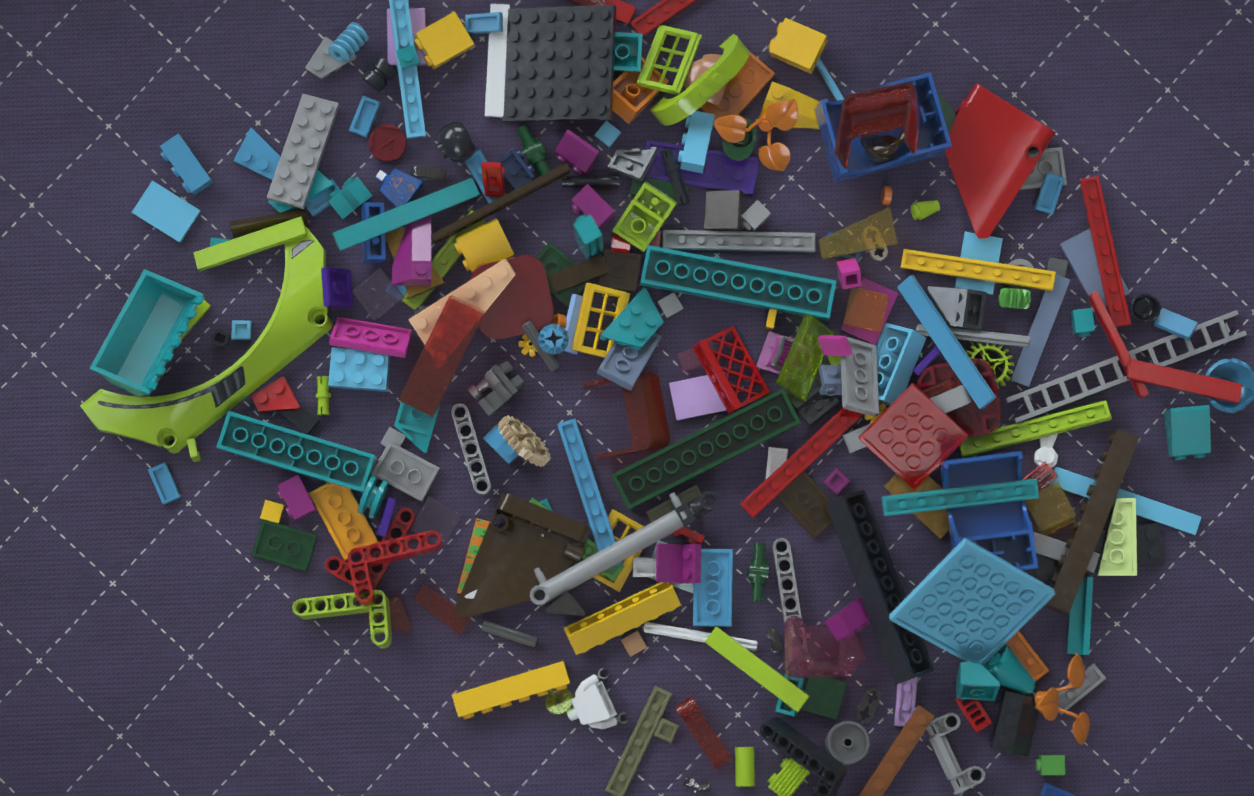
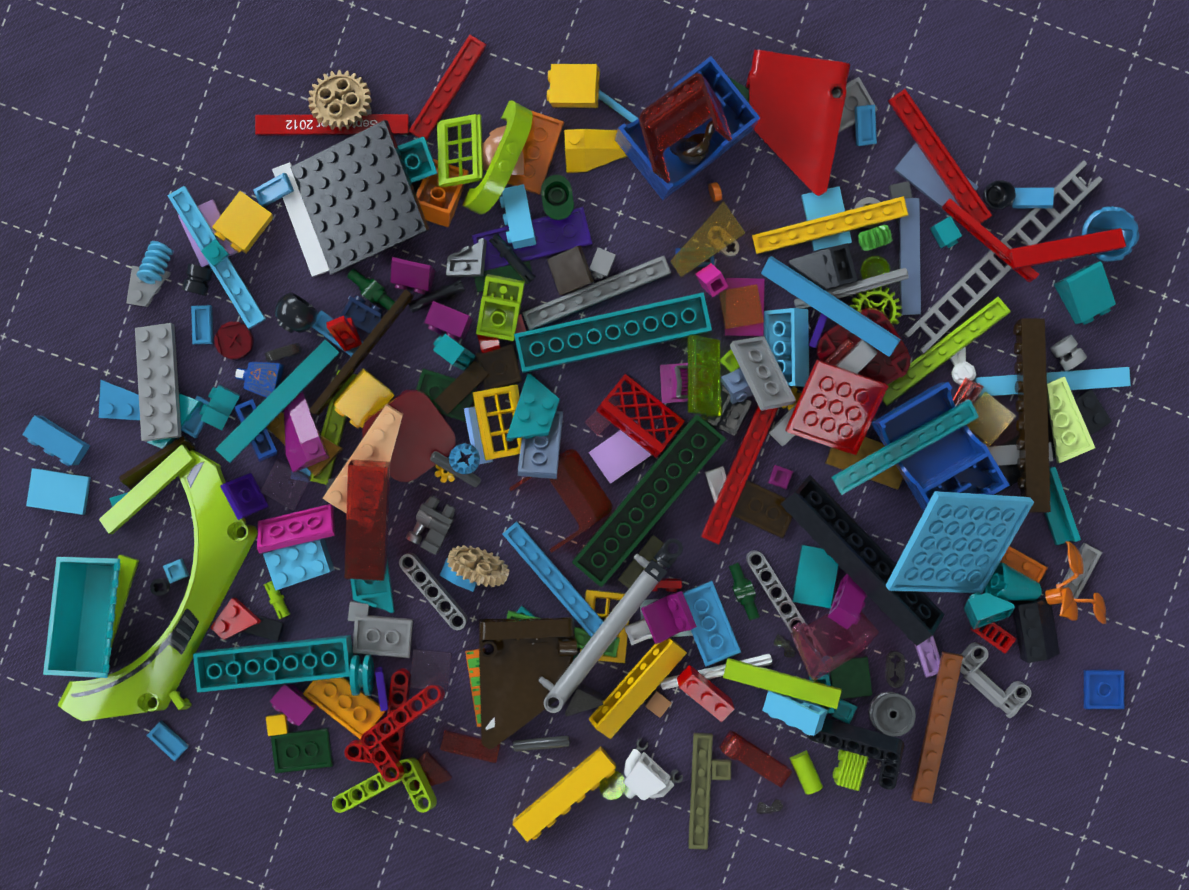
camera: 25 degrees left, 5 degrees up
(559, 319) = (463, 437): orange tile -> none
(607, 134) = (433, 245): medium azure tile -> none
(670, 305) = (559, 379): light grey tile -> none
(682, 649) = (705, 693): none -> brick
(758, 700) = (795, 712): none -> medium azure brick
(771, 319) = (657, 353): yellow tile -> none
(779, 114) = (585, 157): orange plant -> none
(804, 724) = (844, 711): none -> teal tile
(829, 588) = (815, 577): none -> teal tile
(834, 345) = (728, 353): dark pink tile -> none
(924, 209) = (755, 190): lime cone -> none
(1003, 324) = (874, 266): none -> clear neon green hair
(1051, 764) = (1085, 653): bright green brick -> none
(1149, 472) = (1066, 346): none -> light grey wheel

